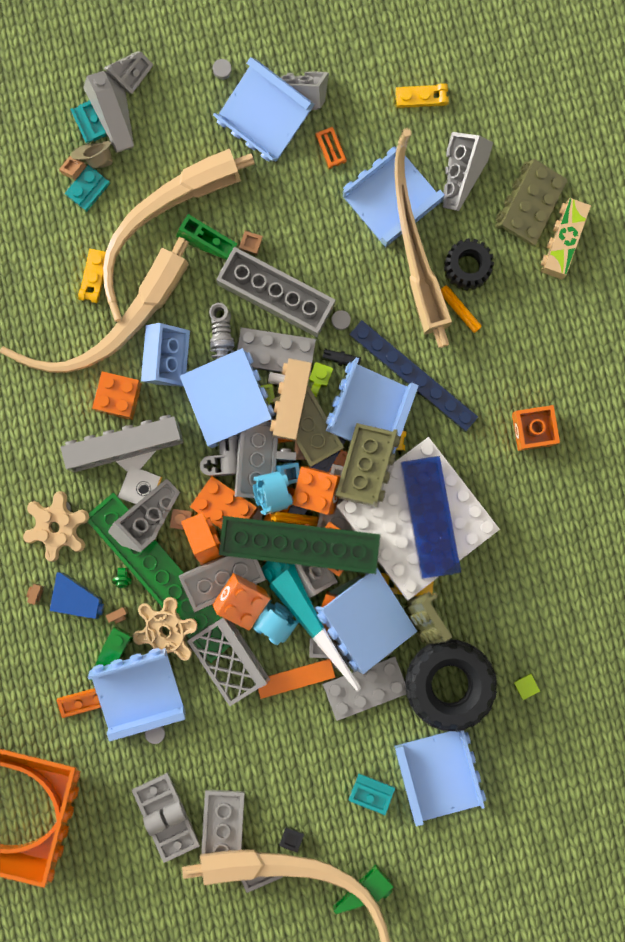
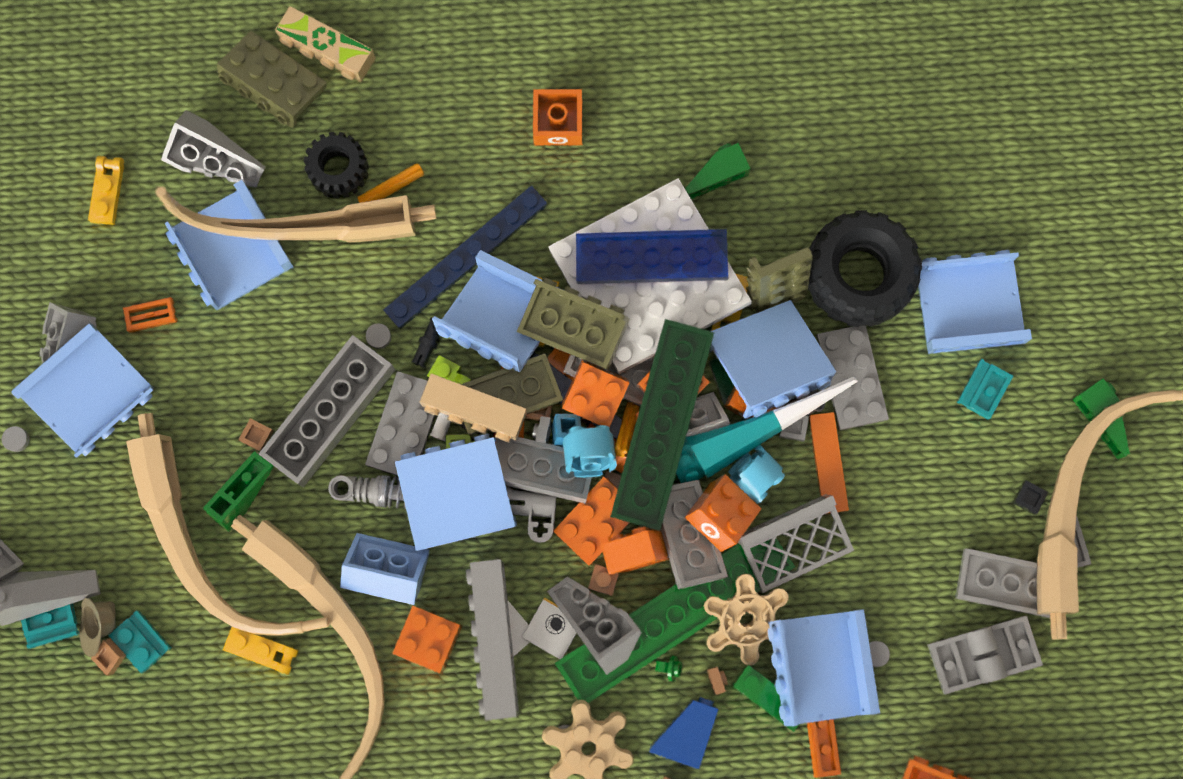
camera: 75 degrees left, 5 degrees down
(515, 563) = (722, 169): none -> green slope
(526, 686) = (875, 181): lime tile -> none

